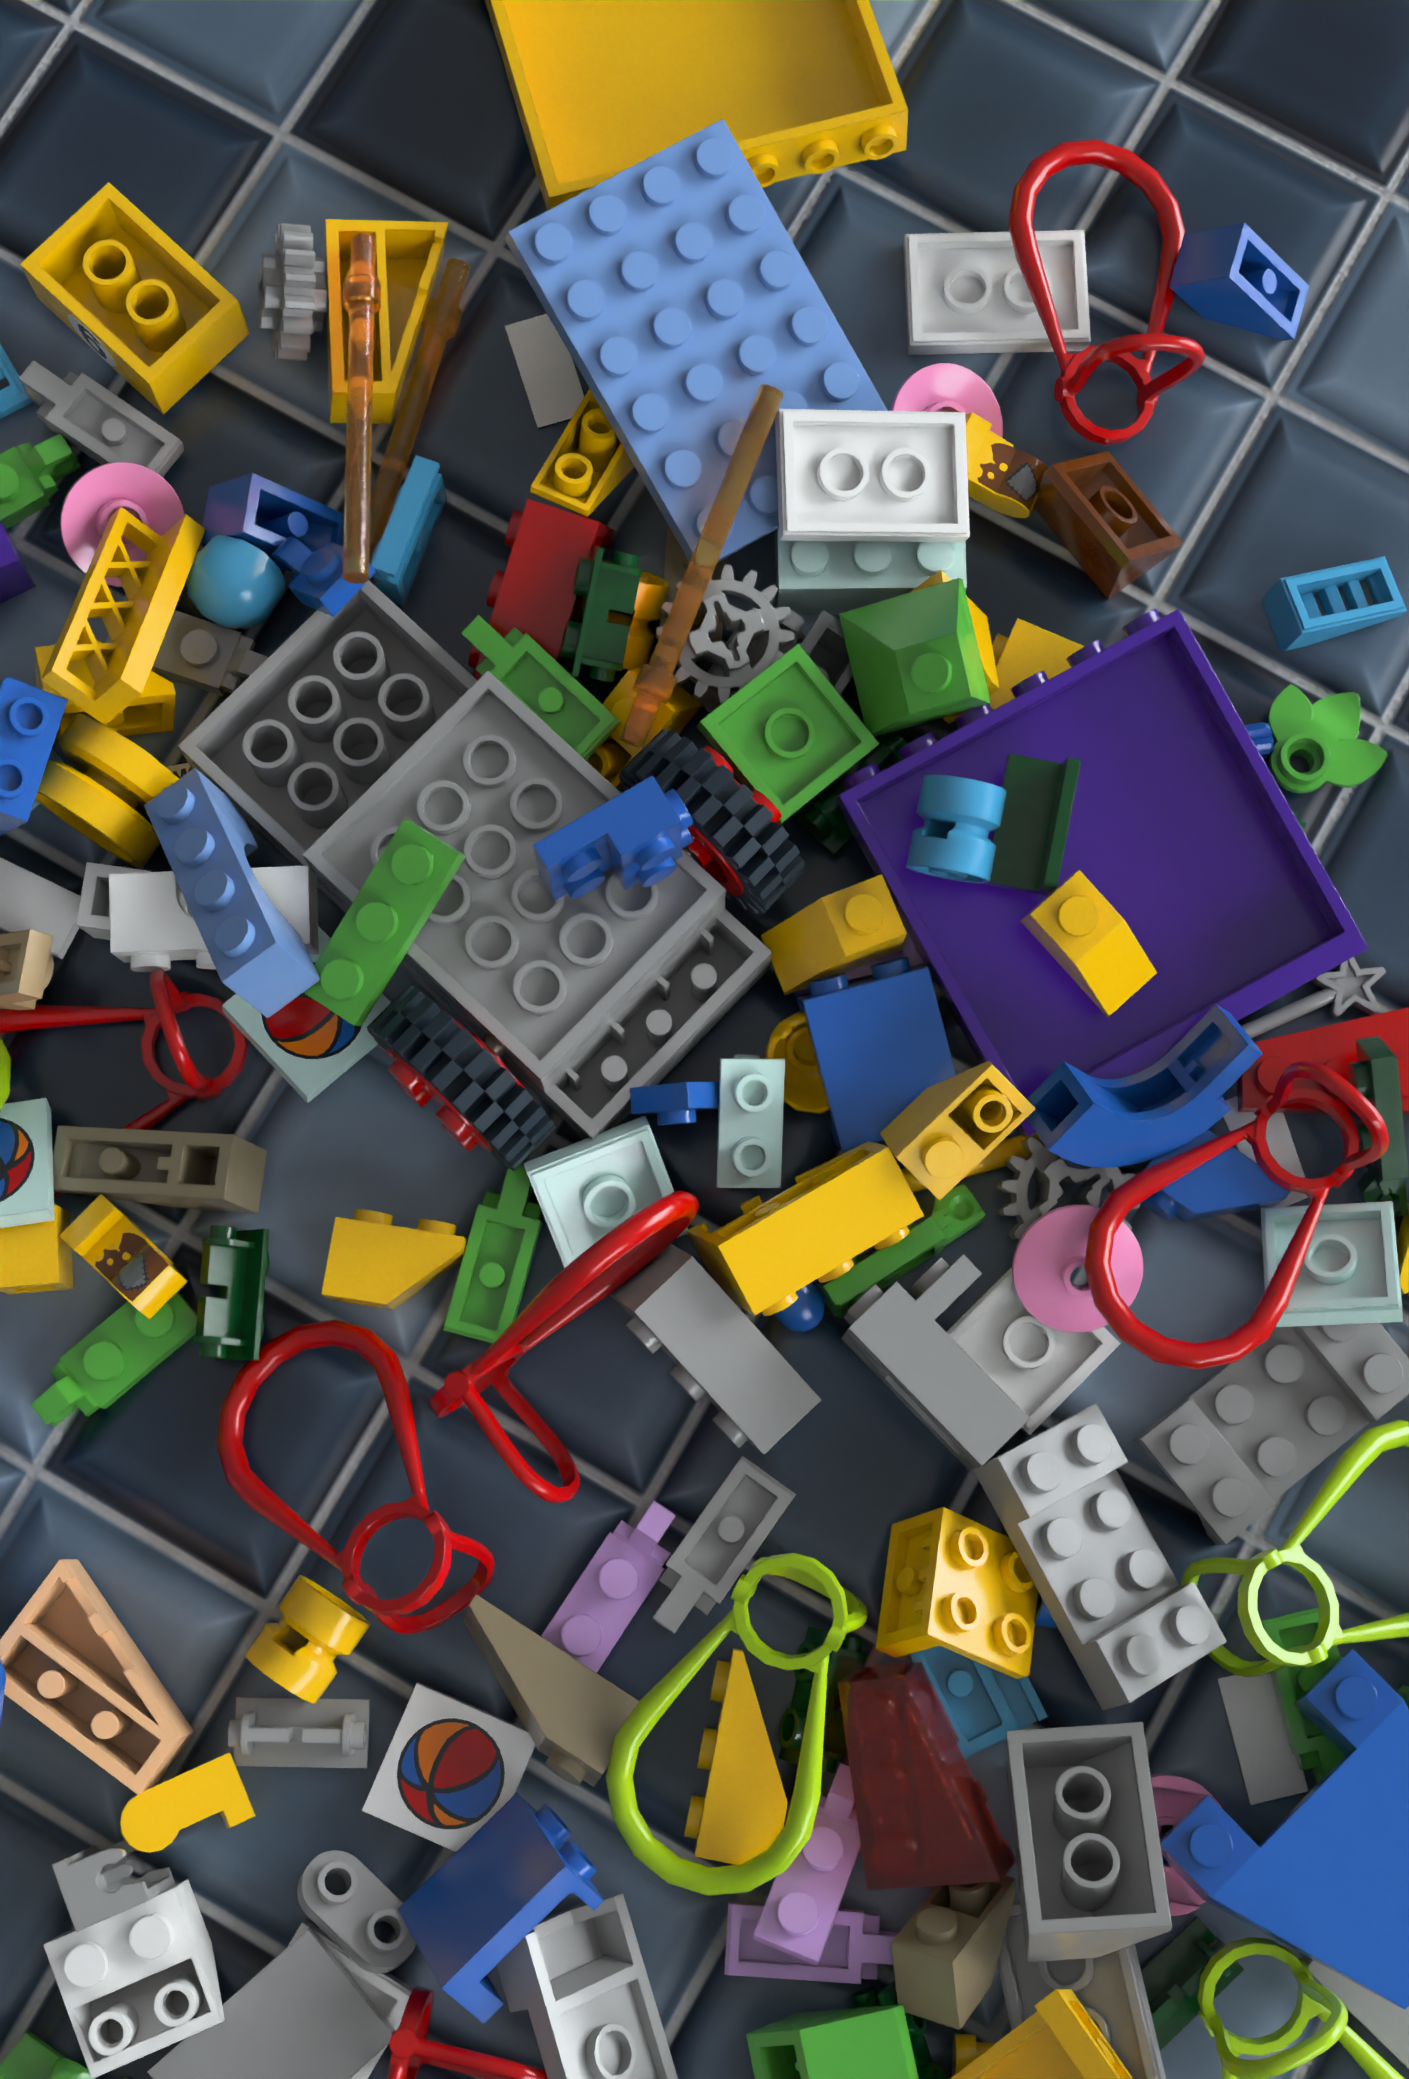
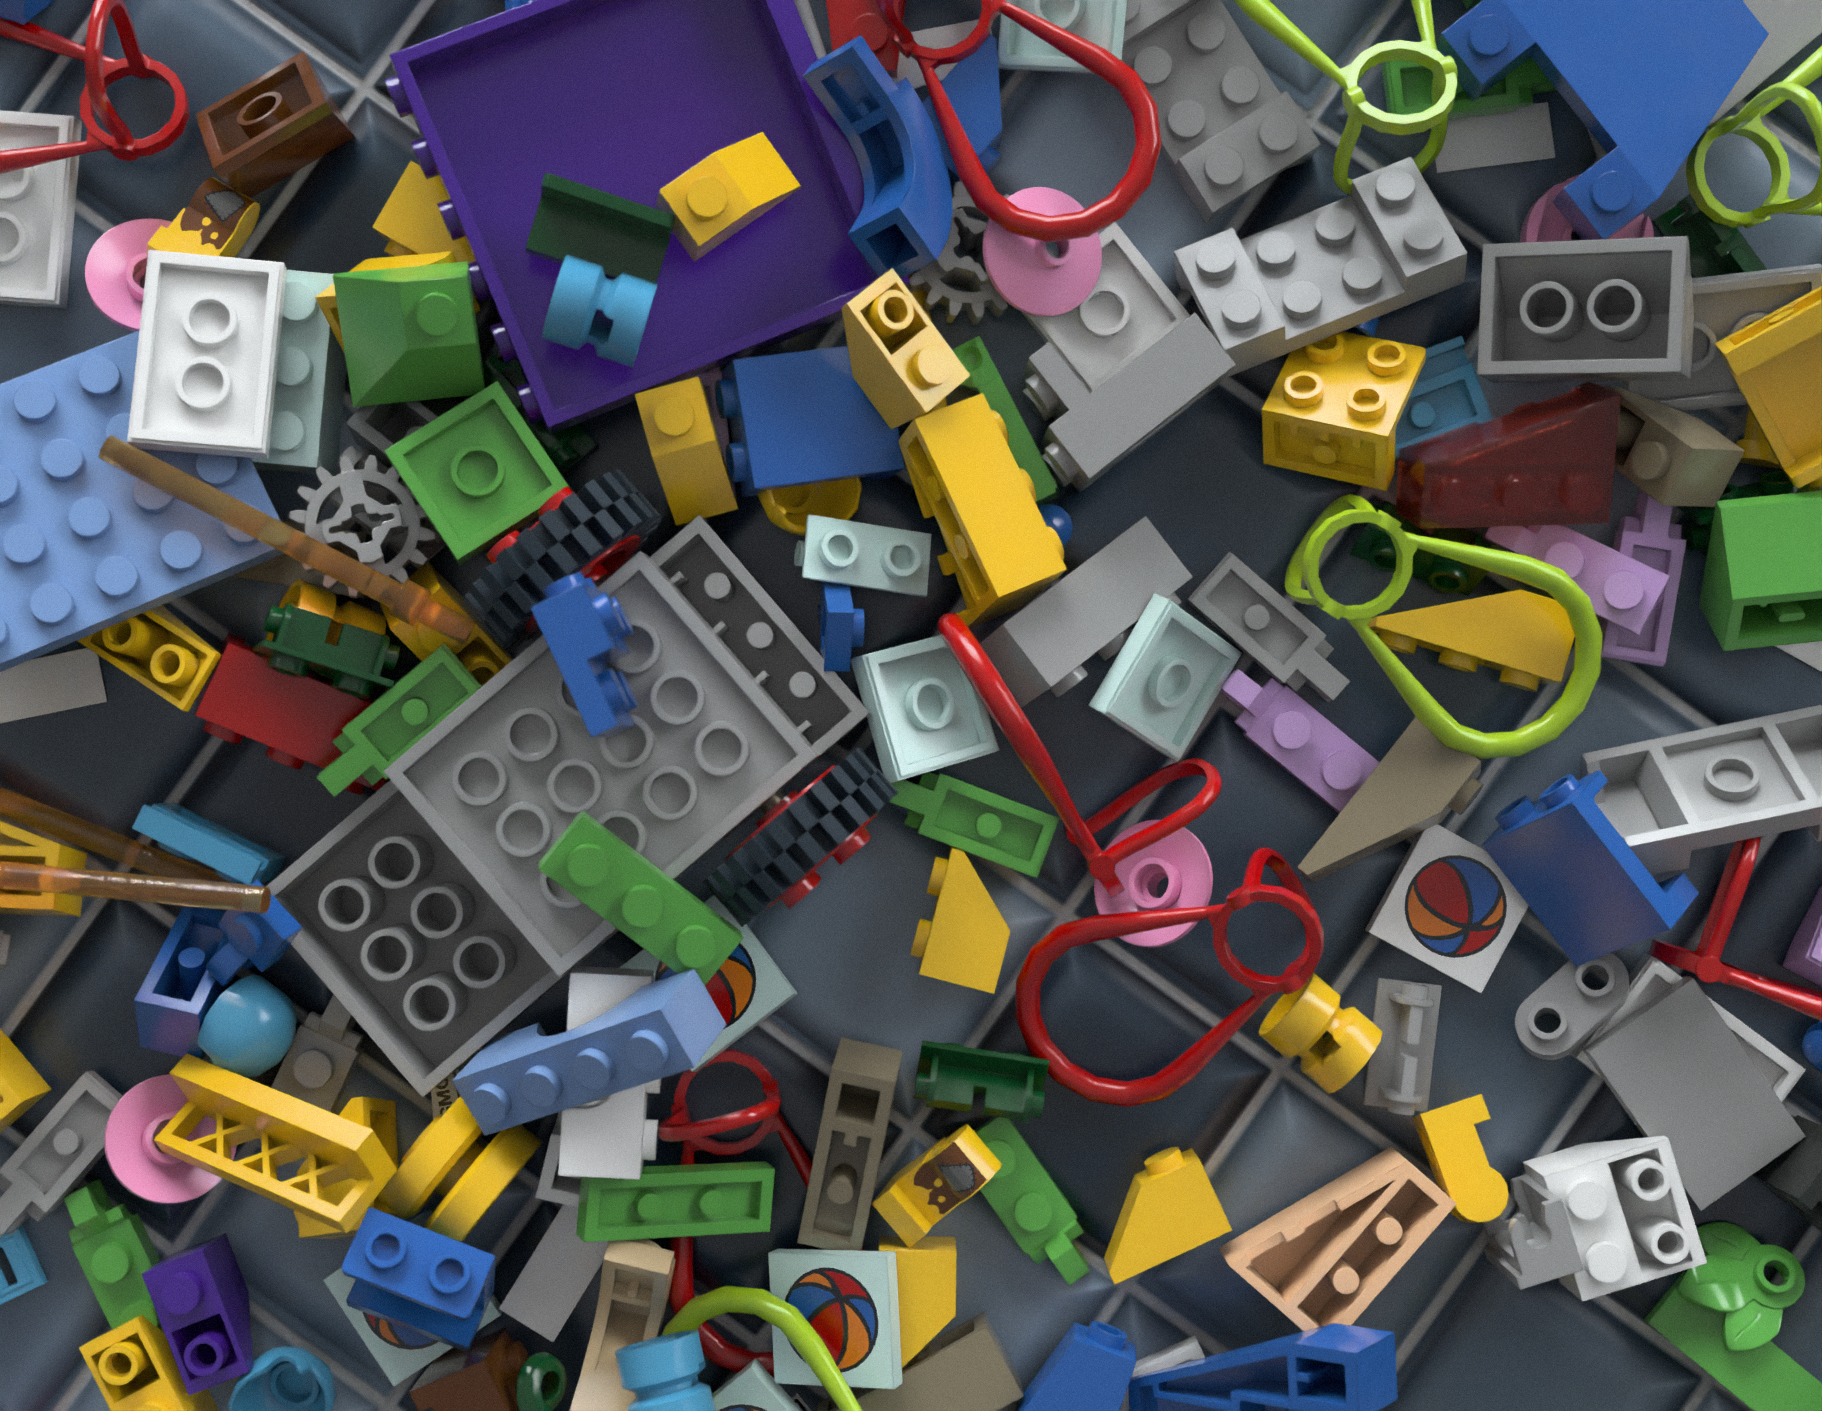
camera: 80 degrees left, 10 degrees up
(90, 1001) = (677, 1202): none -> bright green plate
(110, 1498) = (1164, 1214): none -> yellow slope
(458, 1437) = (1189, 882): none -> bright pink dish
(657, 1438) = (1165, 677): none -> light aqua tile

